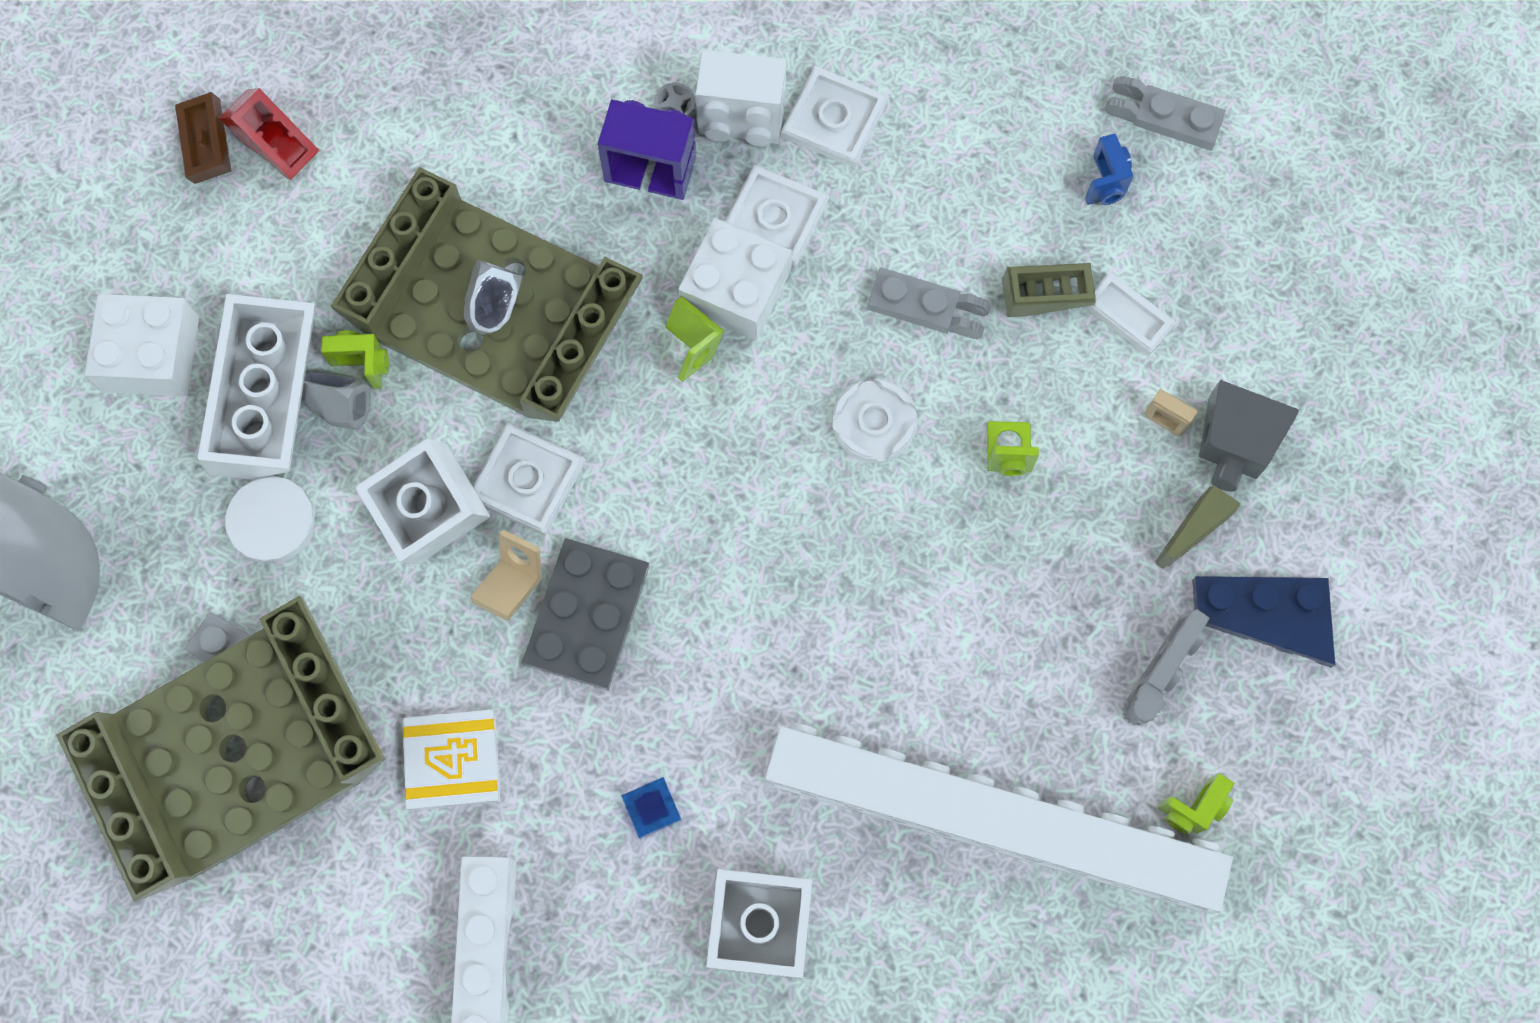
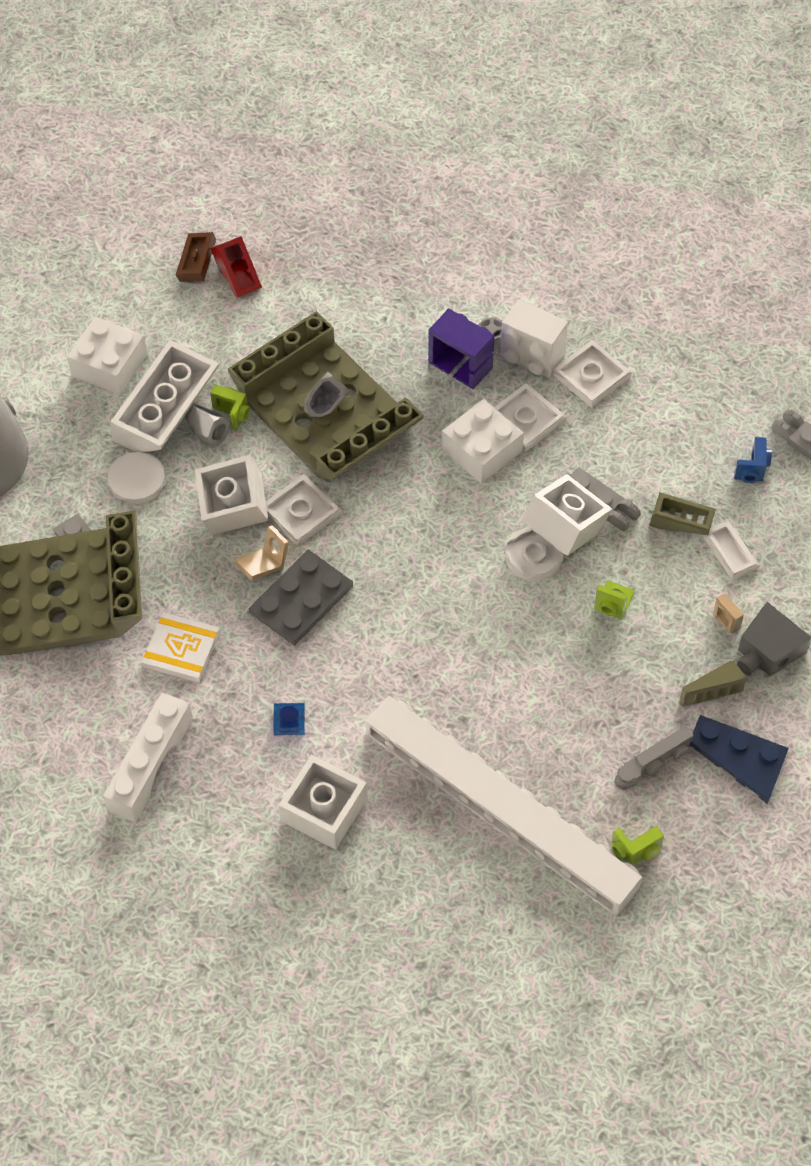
camera: 25 degrees right, 15 degrees down
(696, 332) = (443, 463): lime bracket -> none
(903, 352) = (566, 514): none -> white brick

